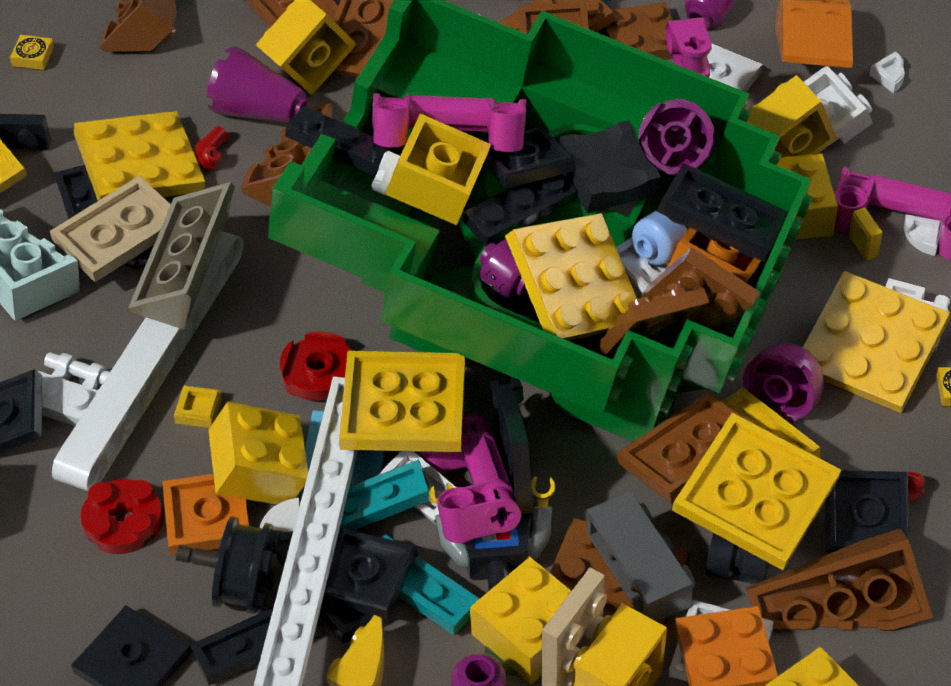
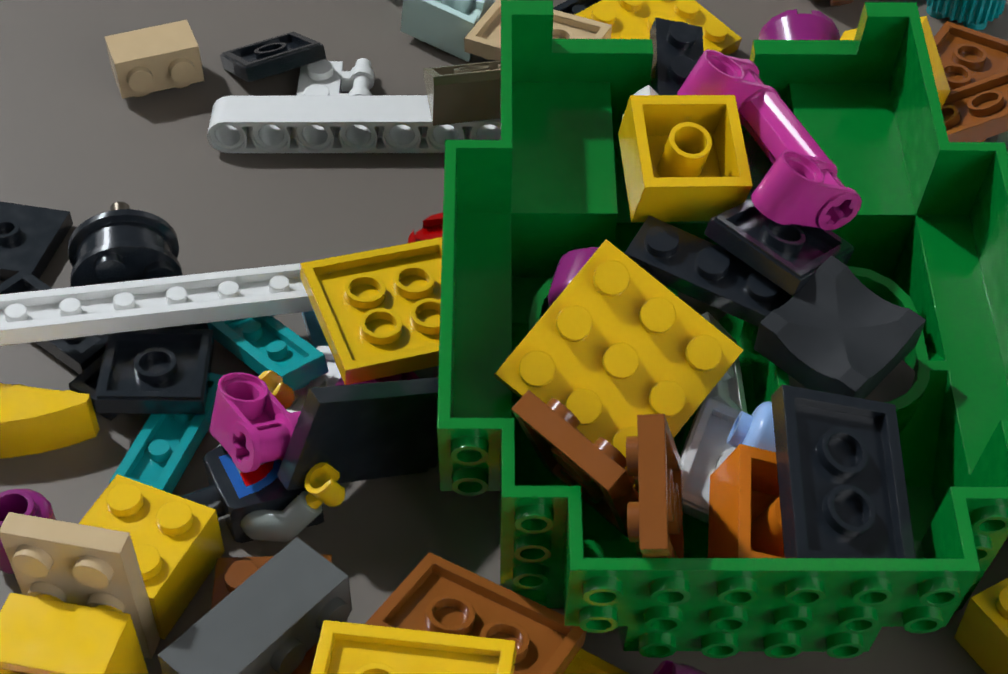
camera: 65 degrees right, 5 degrees down
(116, 496) = (168, 171): red plate -> none
(197, 406) = (357, 183): yellow tile -> none
(197, 513) = (216, 229): orange plate -> none
(257, 454) = (283, 220): yellow brick -> none
(677, 135) = (946, 388): magenta cylinder -> none

